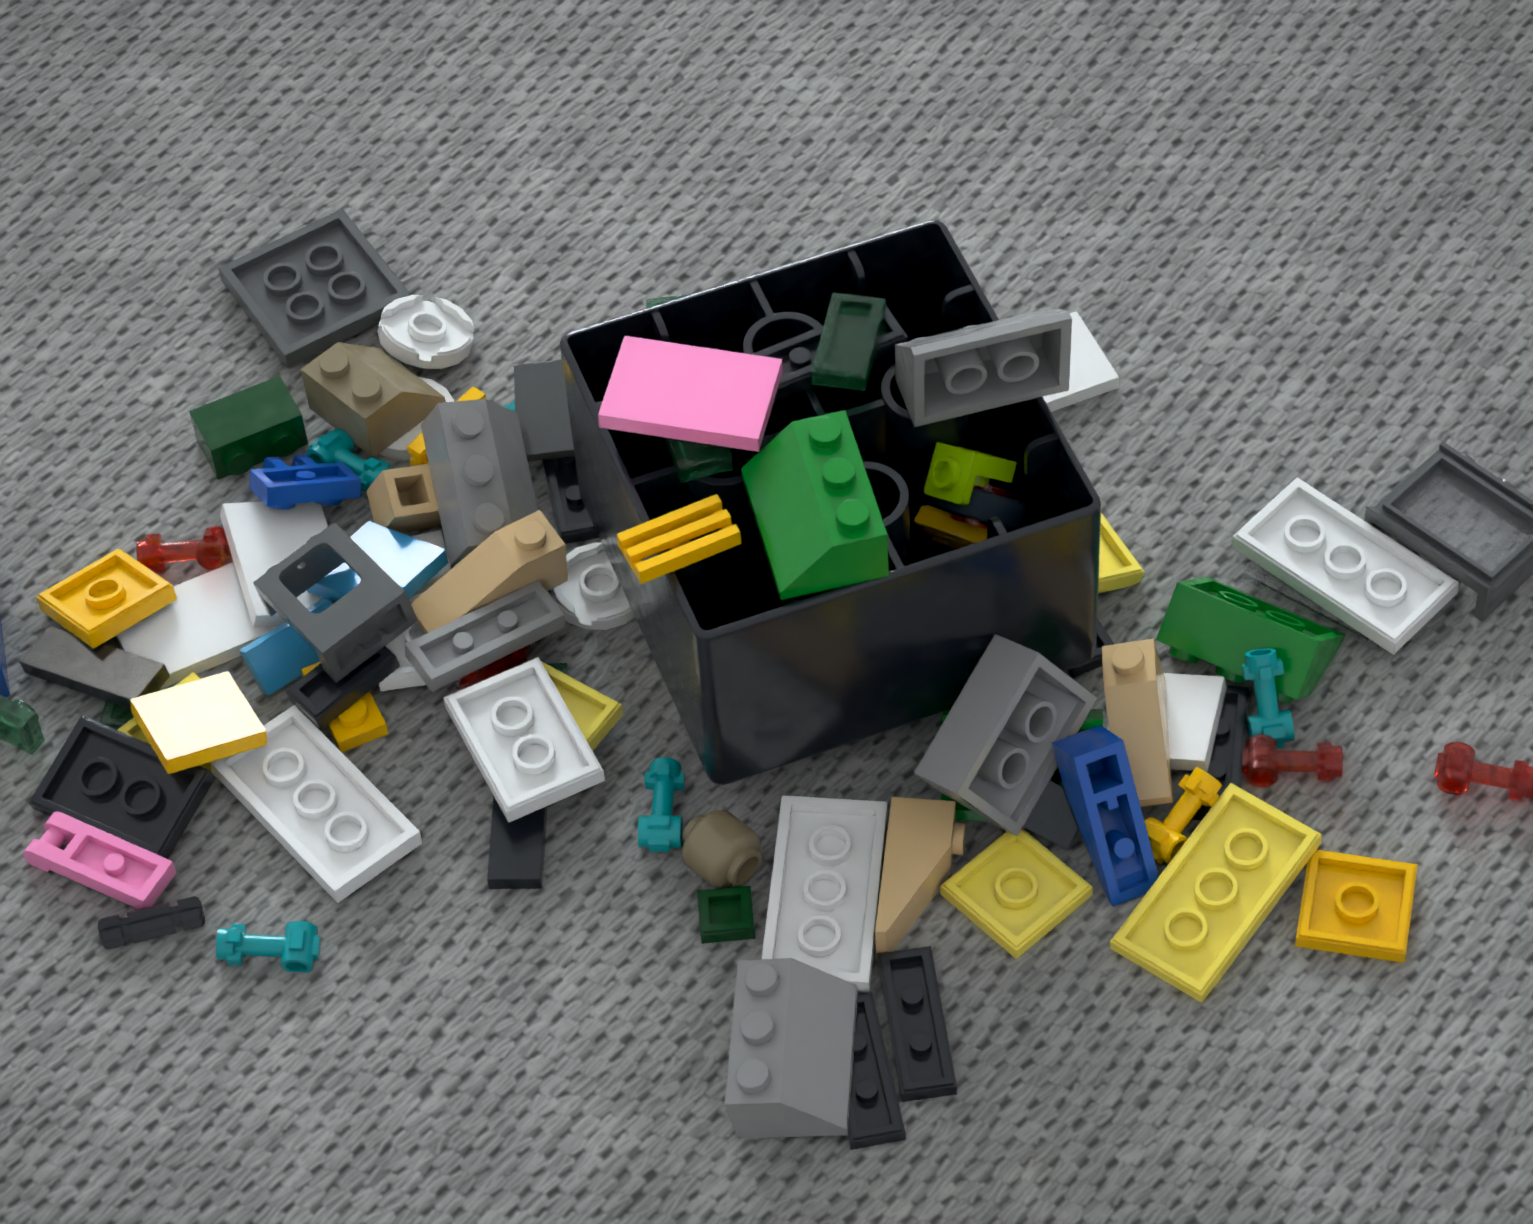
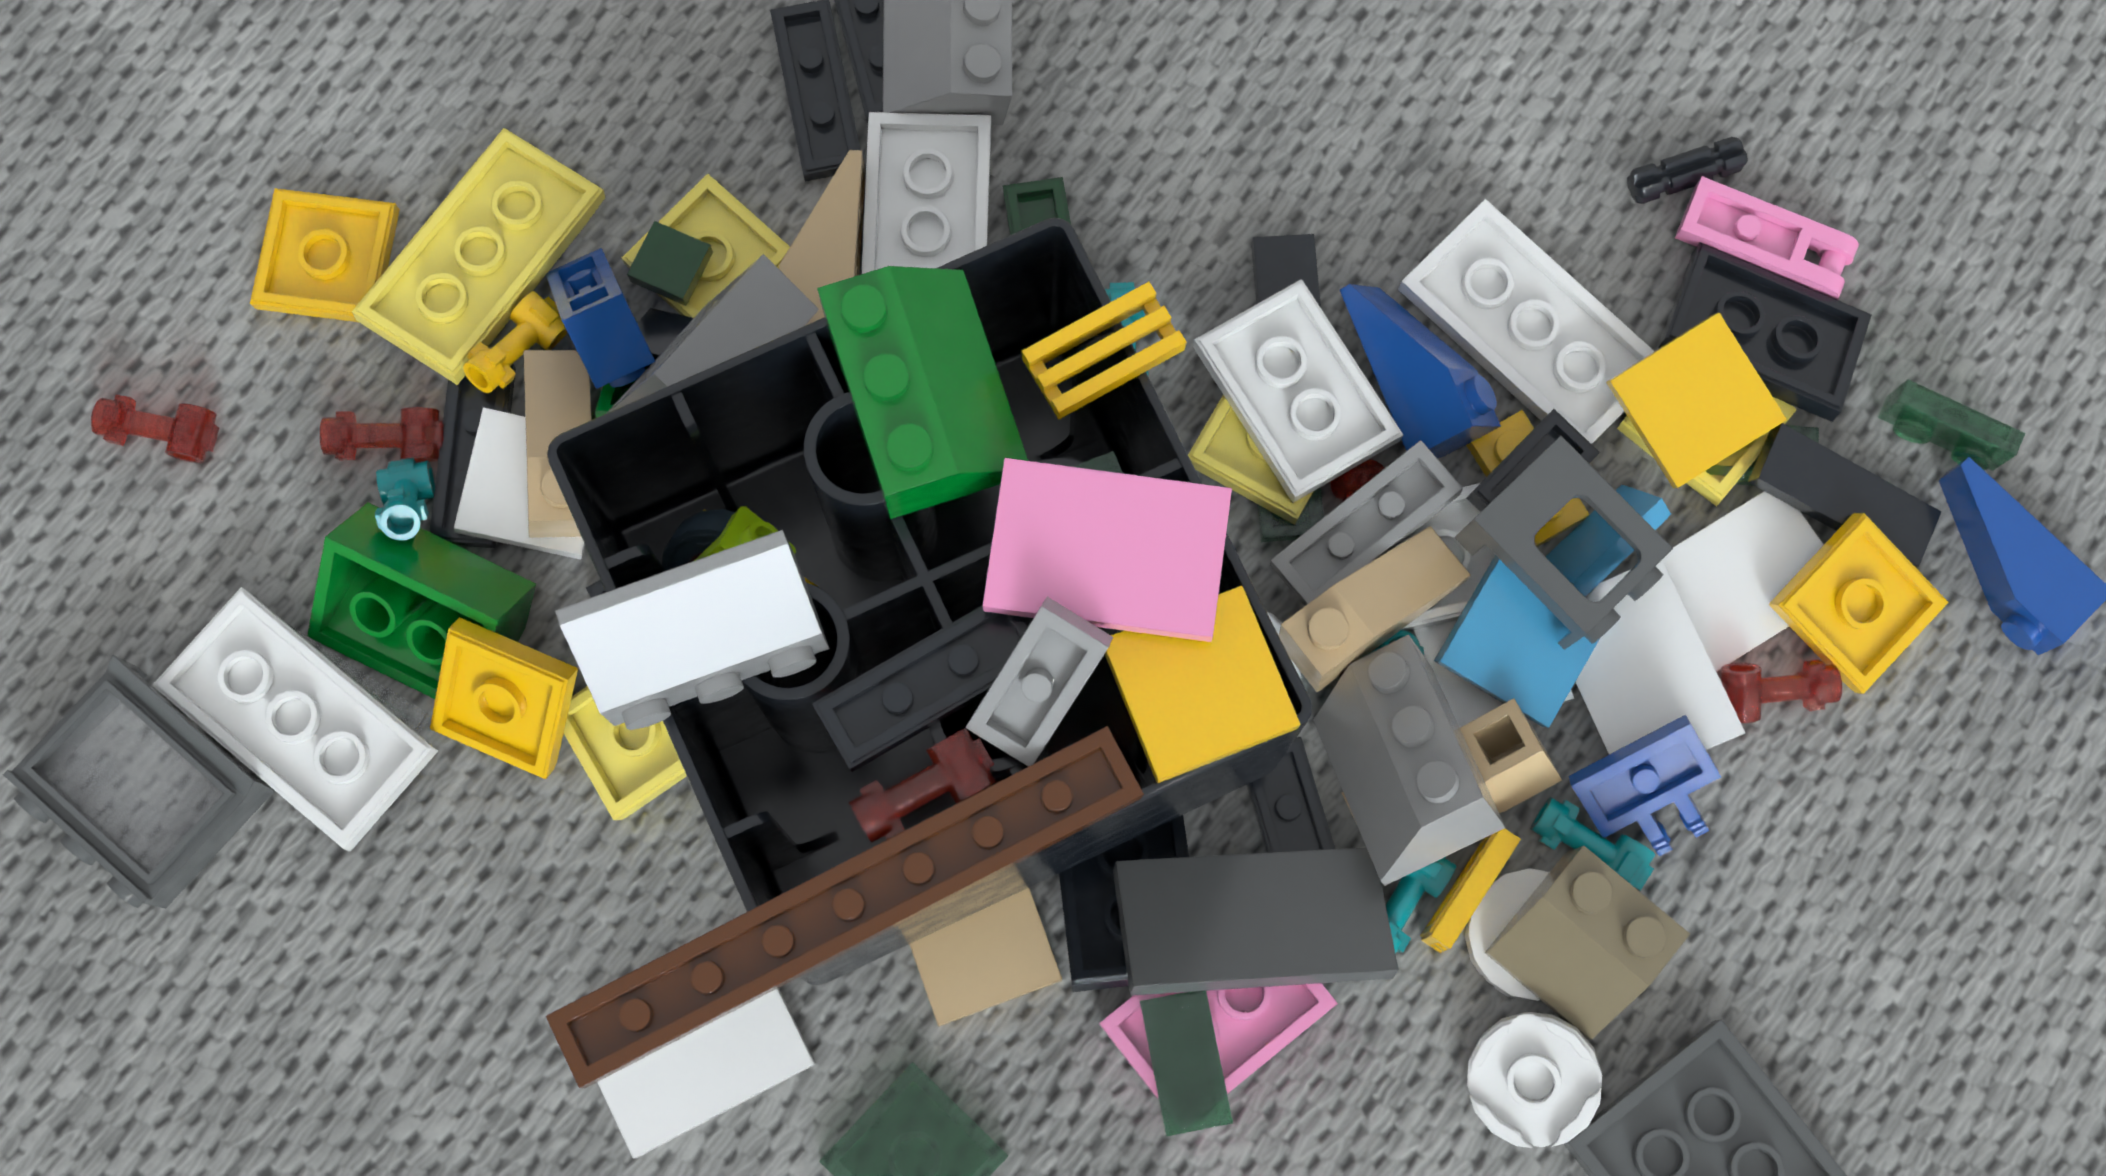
camera: 170 degrees right, 25 degrees up
(249, 427) = (1741, 889): dark green brick -> none
(296, 948) = (1514, 143): teal bar -> none
(418, 757) = (1423, 380): none -> blue slope
(604, 327) = (1202, 697): none -> yellow tile
(747, 326) = (1039, 682): none -> light grey plate
(812, 302) = (957, 767): none -> clear red bar
(848, 341) = (892, 672): clear green tile -> none
(885, 231) = (843, 908): none -> reddish brown plate
(1047, 867) = (670, 263): none -> dark green tile
(1178, 561) = (503, 698): none -> yellow tile

